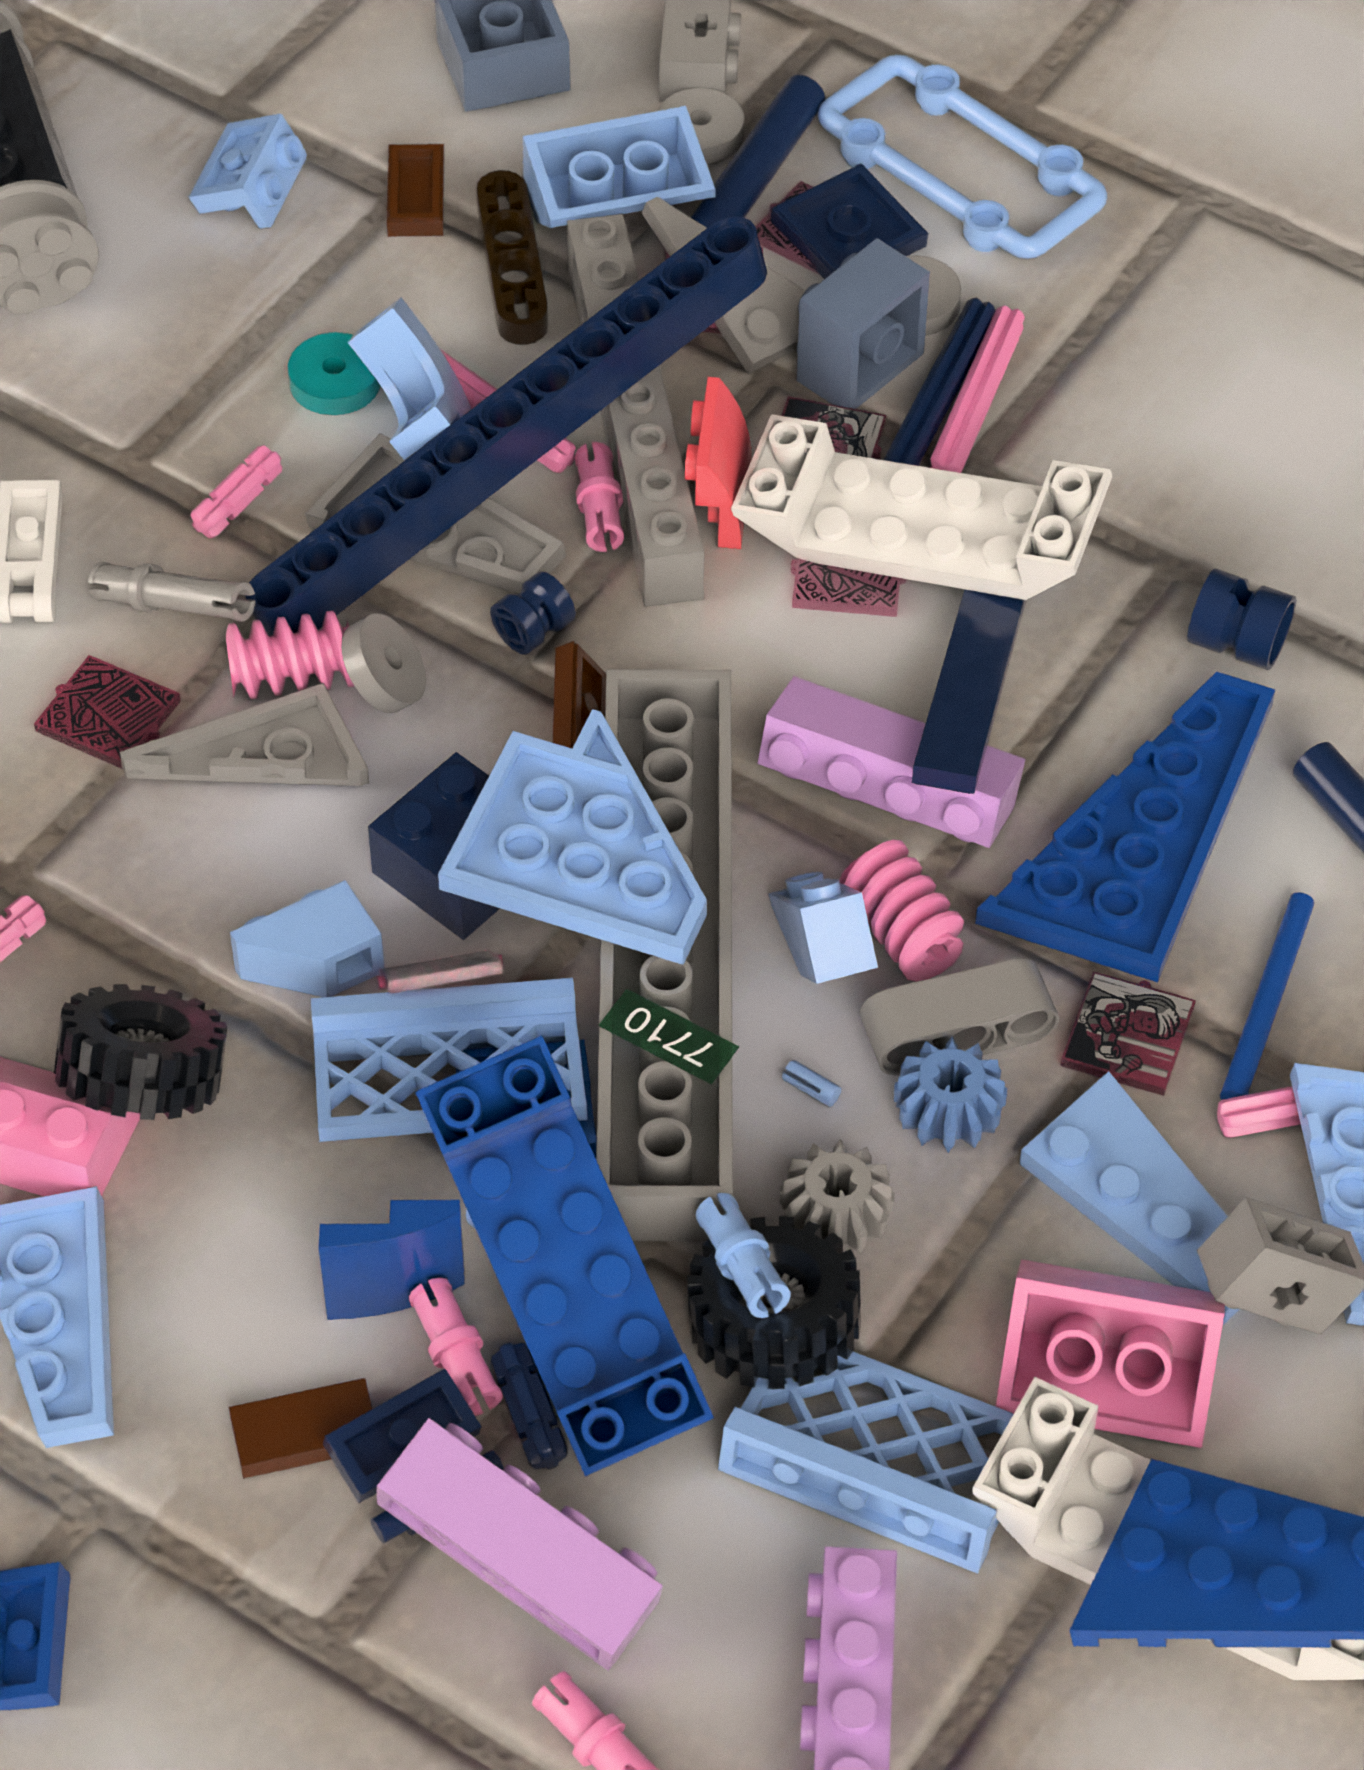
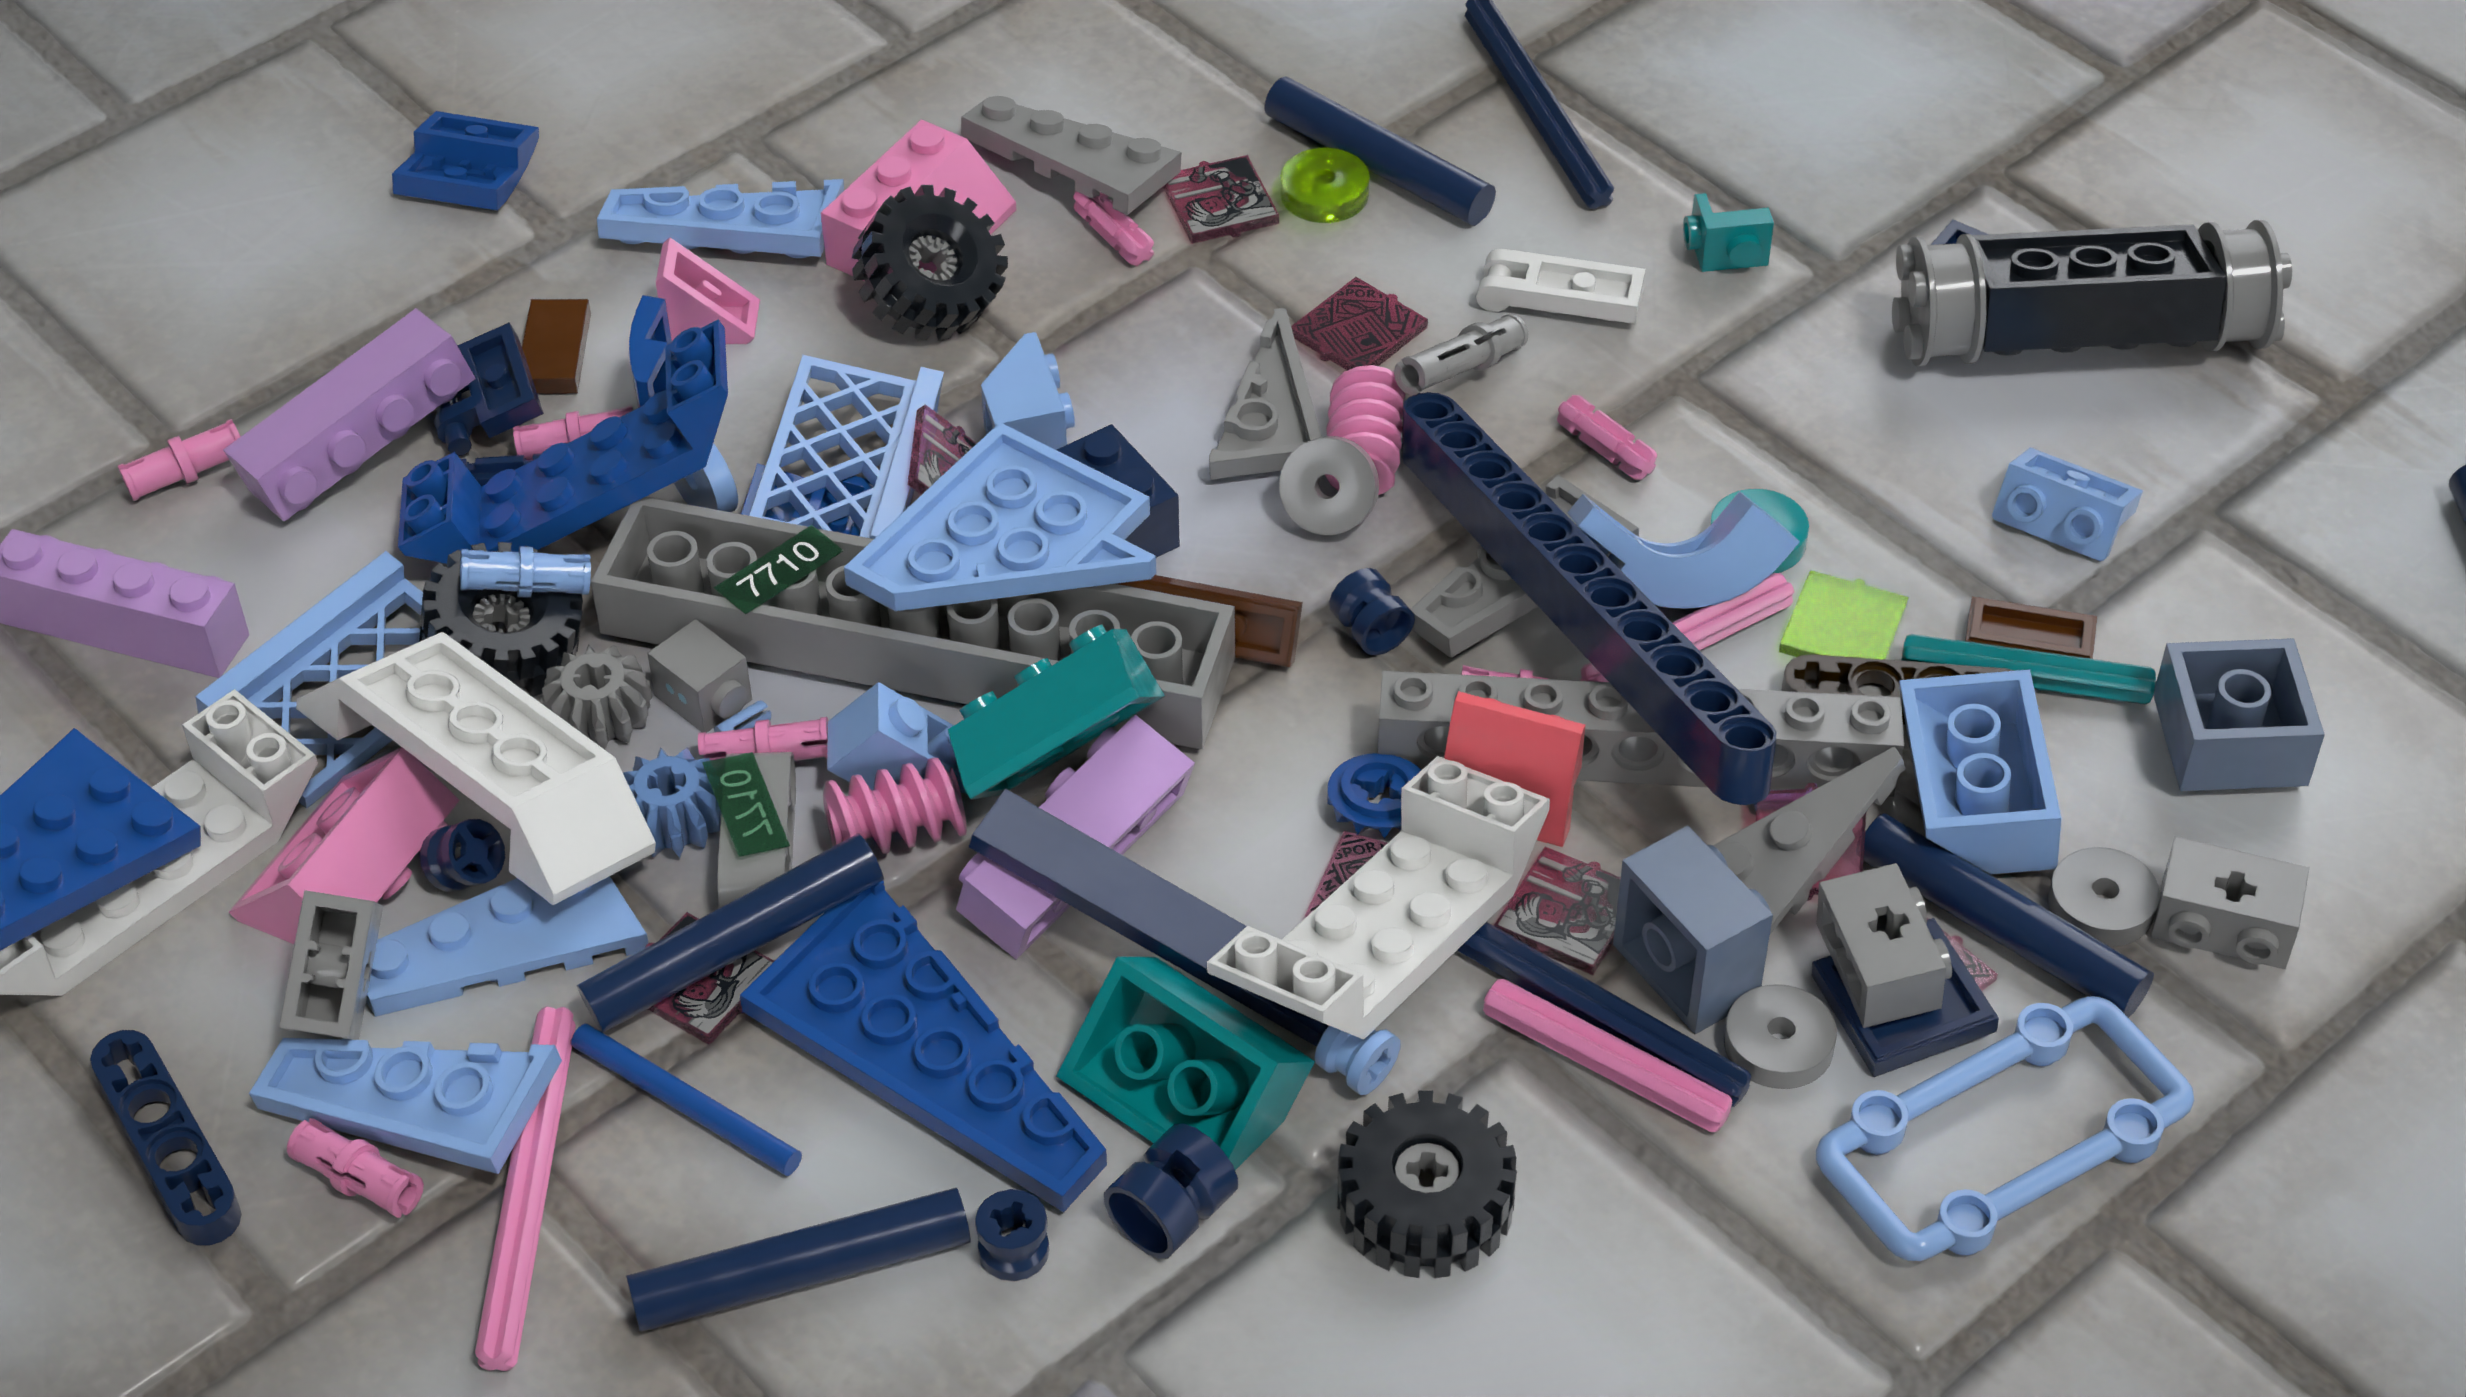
camera: 105 degrees right, 5 degrees down
(219, 1290) = (701, 294): none -> bright pink slope
(443, 302) = (1843, 619): none -> clear neon green piece
(461, 186) = (2048, 670): none -> teal axle
(734, 561) = (1364, 779): none -> blue gear
(780, 1116) = (700, 676): none -> light grey brick
(804, 760) = (1051, 712): none -> teal slope
(833, 216) = (1882, 945): none -> light grey brick
(846, 1044) = (801, 738): none -> bright pink pin
(957, 1003) = (746, 804): none -> clear green sticker
(971, 1241) = (503, 751): none -> white slope
(1083, 1237) = (480, 856): none -> dark blue wheel
(1102, 985) = (730, 932): none -> dark blue piece
(1106, 643) = (1177, 1054): none -> teal slope
(1158, 499) = (1417, 1223): none -> black bush
(1307, 710) = (1025, 1248): none -> dark blue wheel

